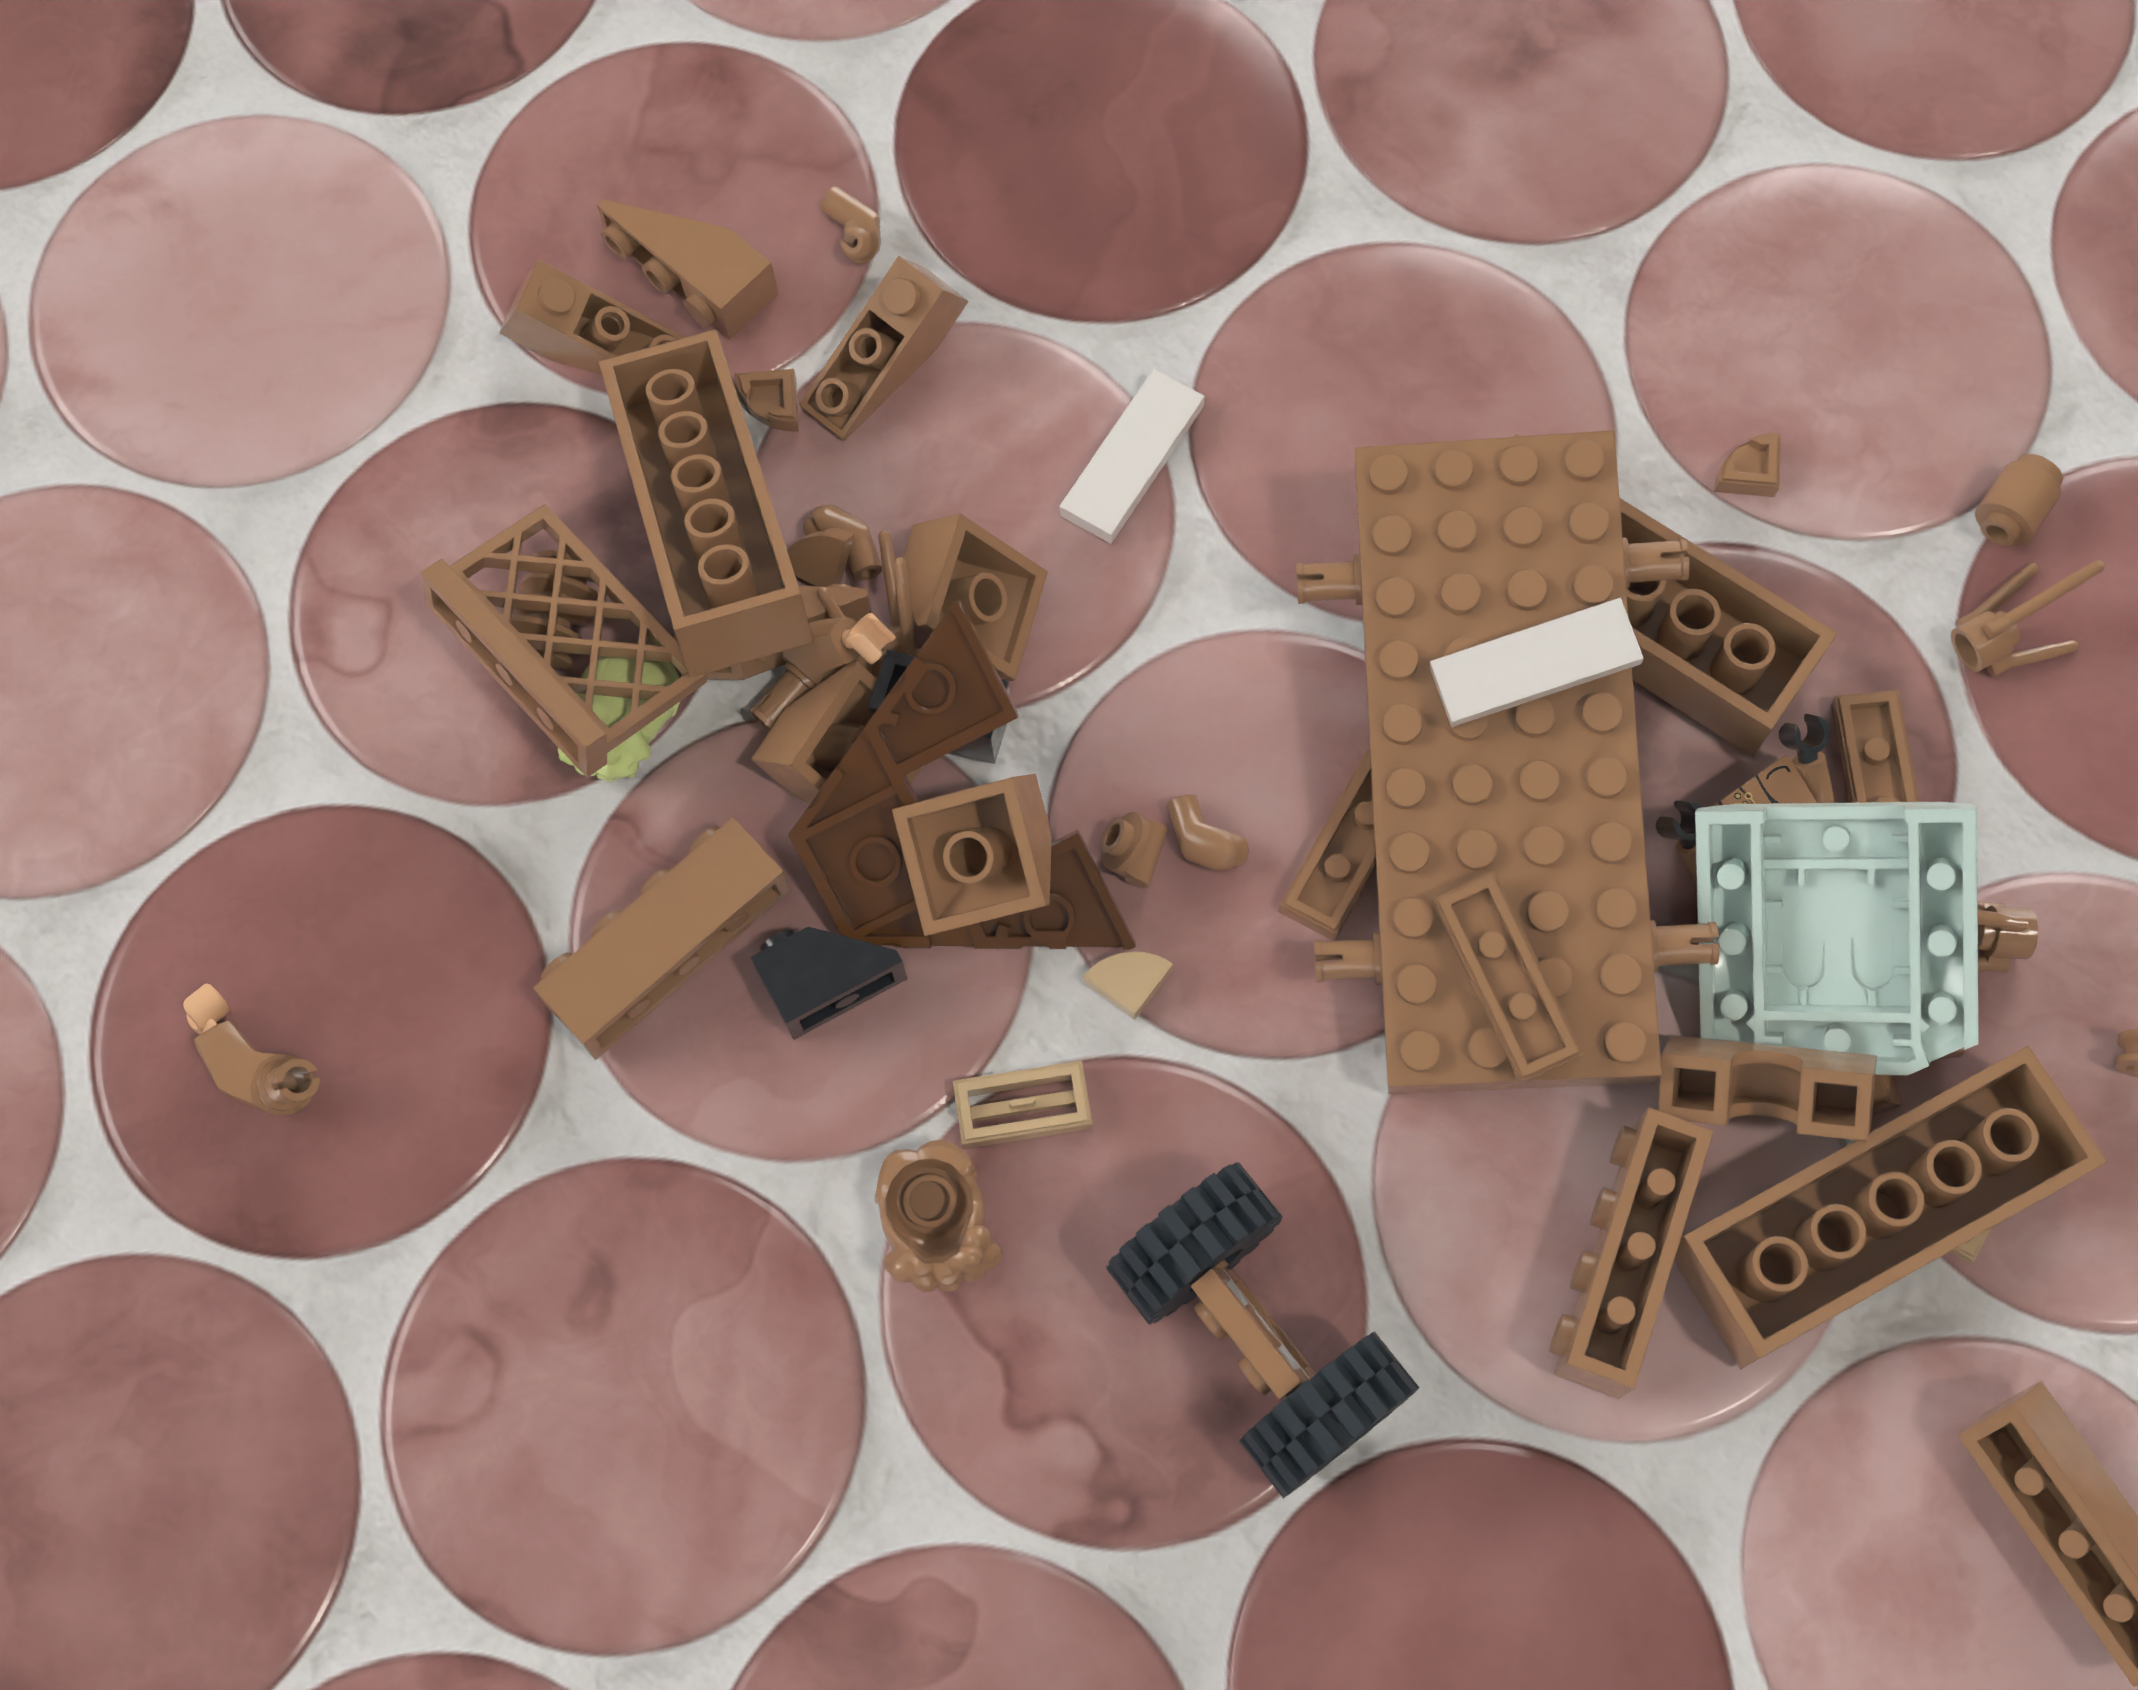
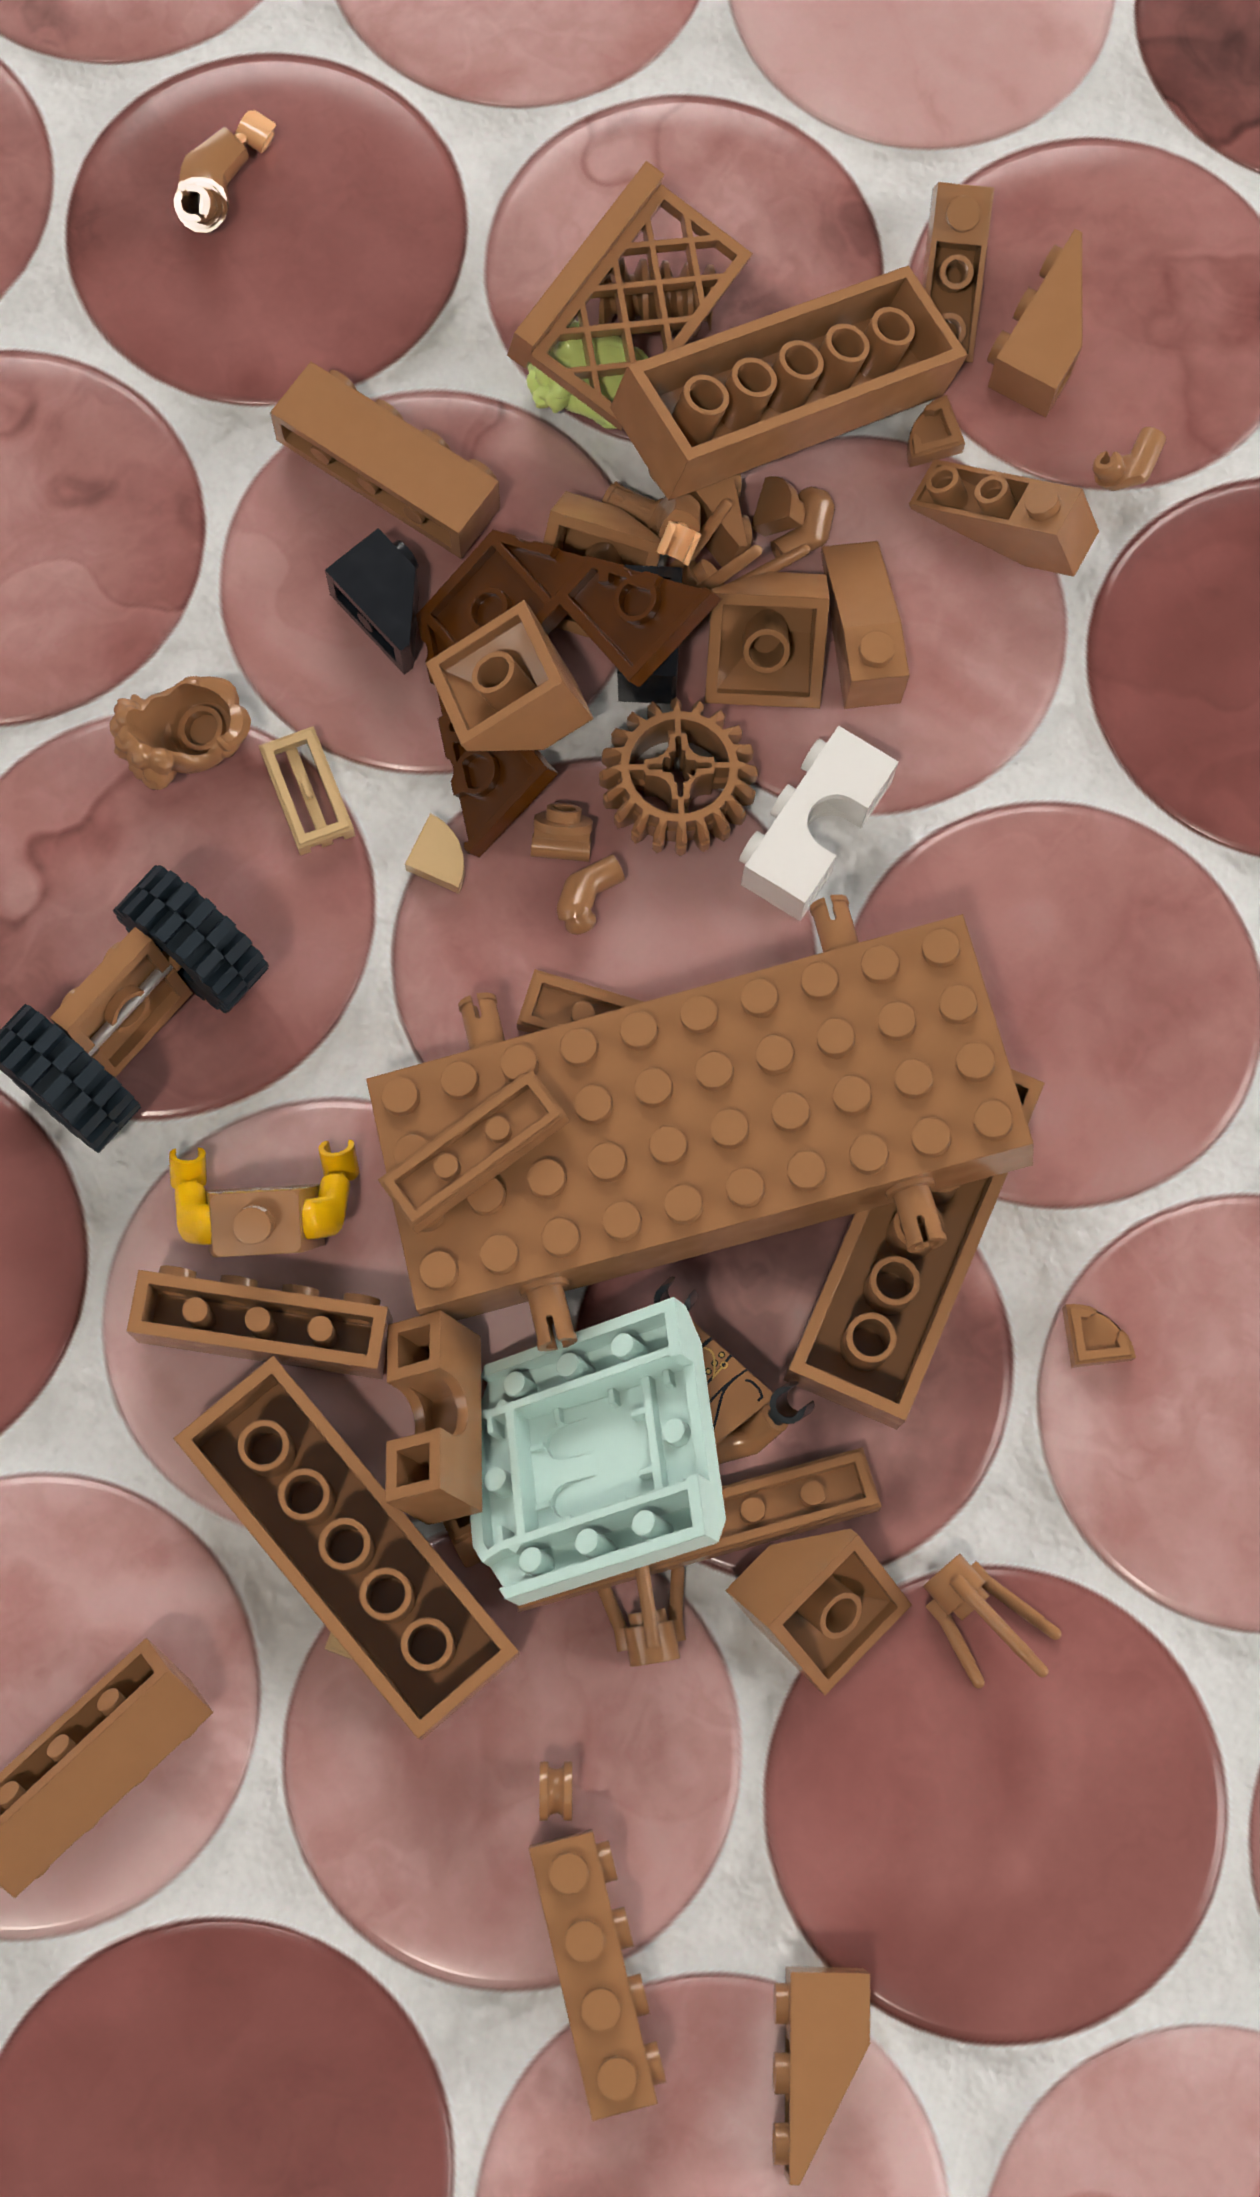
camera: 70 degrees right, 5 degrees up
(1000, 495) = (865, 626): none -> medium nougat slope
(1121, 724) = (701, 775): none -> medium nougat gear
(1132, 456) = (959, 757): white tile -> none
(1213, 631) = (841, 780): none -> white arch
(1516, 1232) = (262, 1217): none -> torso
(1536, 662) = (775, 1113): white tile -> none
(1990, 763) = (820, 1602): none -> medium nougat slope
(2019, 500) = (1118, 1604): medium nougat brick -> none

